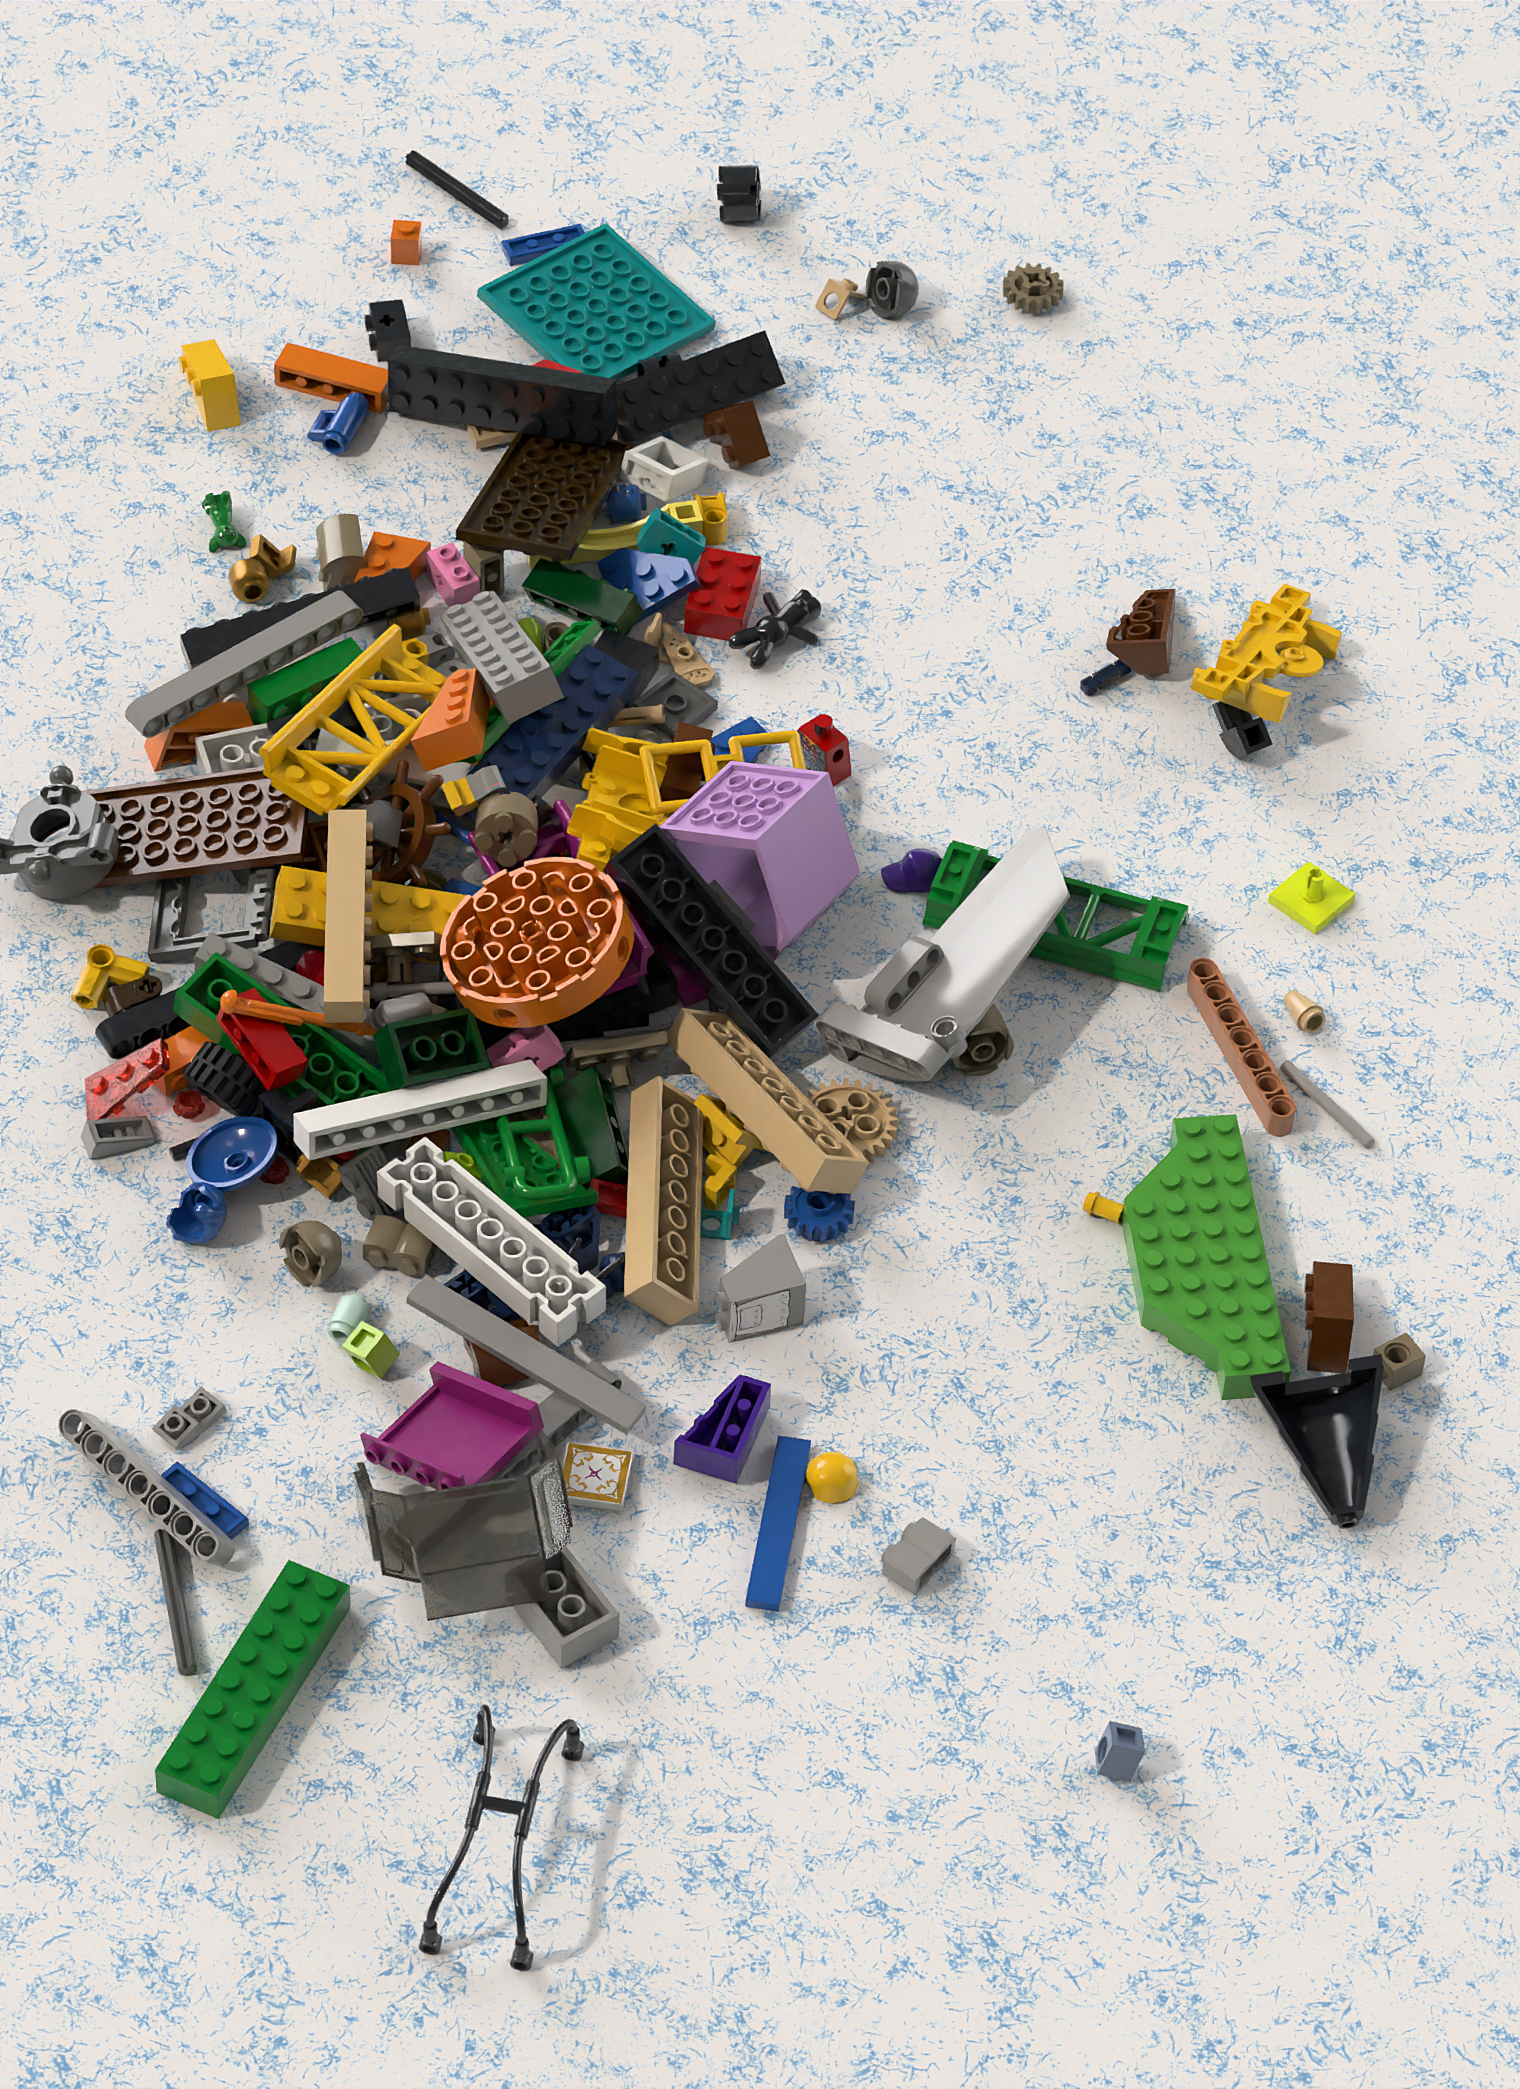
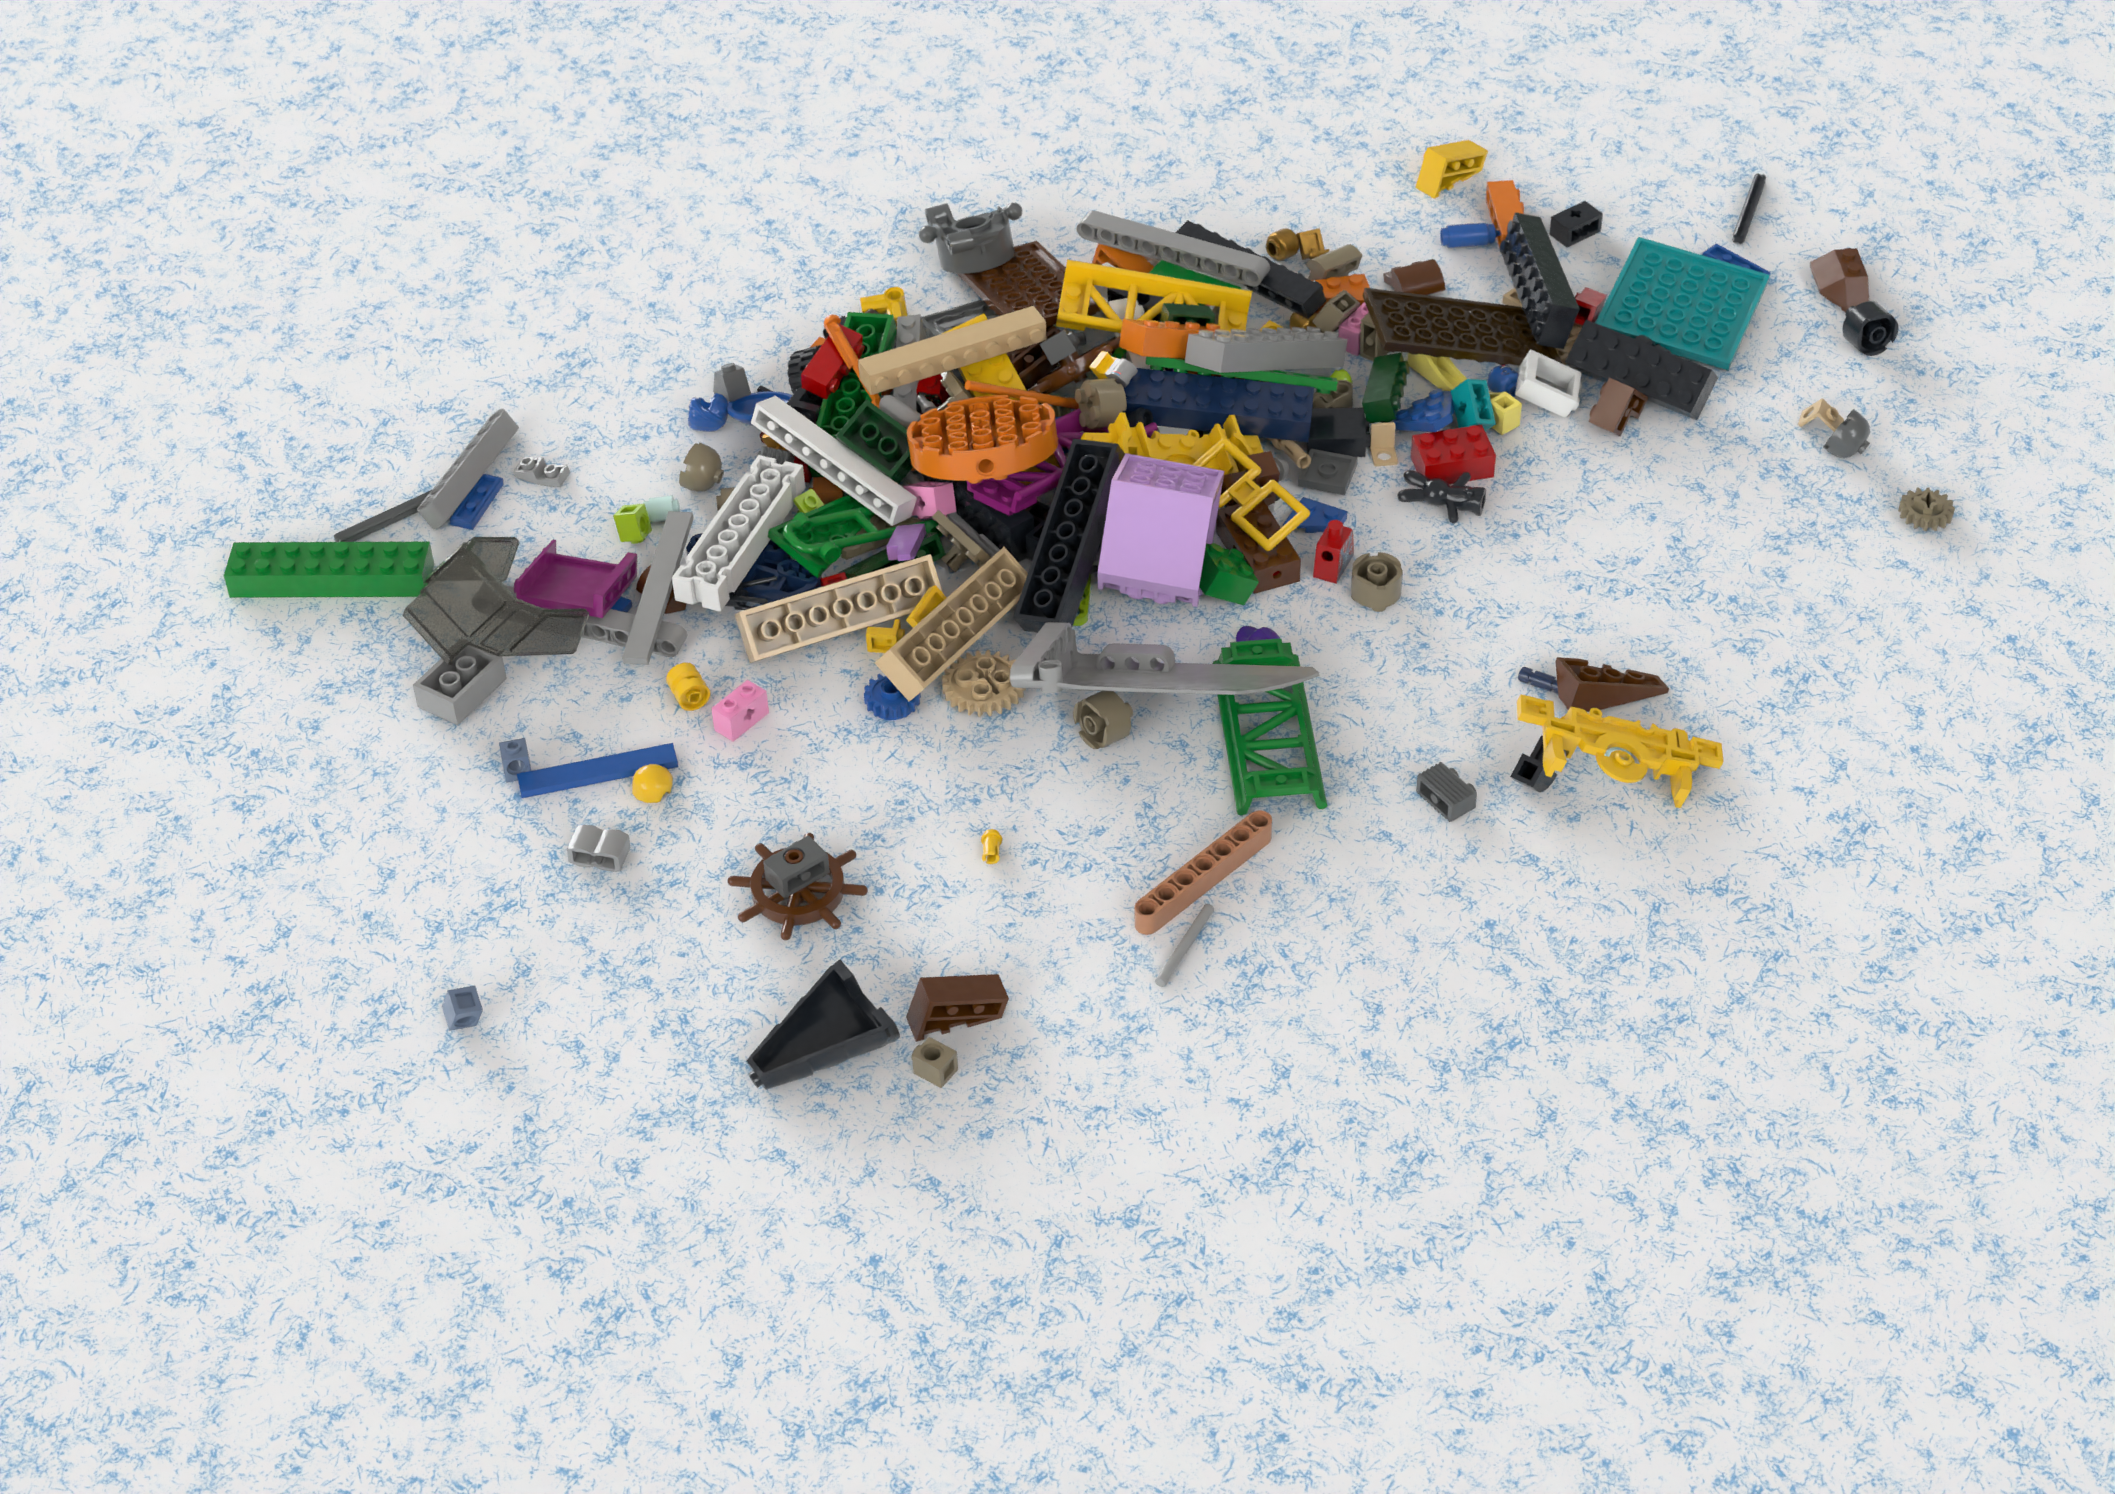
camera: 70 degrees right, 5 degrees down
(97, 1132) = (755, 348): light grey slope -> none
(119, 1081) = (792, 339): clear red wing -> none
(169, 1170) = (731, 382): none -> dark grey slope
(220, 510) = (1332, 215): green animal -> none
(393, 498) = (1417, 278): none -> reddish brown brick
(406, 242) = (1667, 200): orange brick -> none
(416, 693) = (1187, 313): none -> dark green brick
(435, 582) = (1336, 312): none -> dark tan brick
(443, 847) = (1017, 393): none -> orange bar
(484, 1735) = (247, 699): black bar -> none
(596, 1475) = (591, 668): tile -> none
(606, 1096) = (905, 542): none -> medium lavender piece
(632, 174) = (1841, 277): none -> reddish brown wedge
(691, 666) = (1376, 471): tan piece -> none
(696, 1388) = (688, 686): none -> yellow wheel
(714, 517) = (1530, 427): yellow piece -> none
(725, 1218) = (855, 650): teal bracket -> none
(726, 1432) = (657, 712): dark purple wedge -> none
(728, 1591) = (514, 758): none -> sand blue brick
(762, 1293) = (793, 684): light grey slope -> none
(766, 1352) = (740, 710): none -> bright pink brick
(889, 735) = (1376, 581): none -> dark tan brick
(1089, 1380) = (794, 876): none -> reddish brown brick
(1203, 1256) = (975, 913): bright green brick -> none
(1230, 814) = (1446, 791): none -> dark grey brick
(1305, 1013) = (1268, 899): tan cone -> none
(1311, 897) = (1399, 869): neon yellow tile -> none

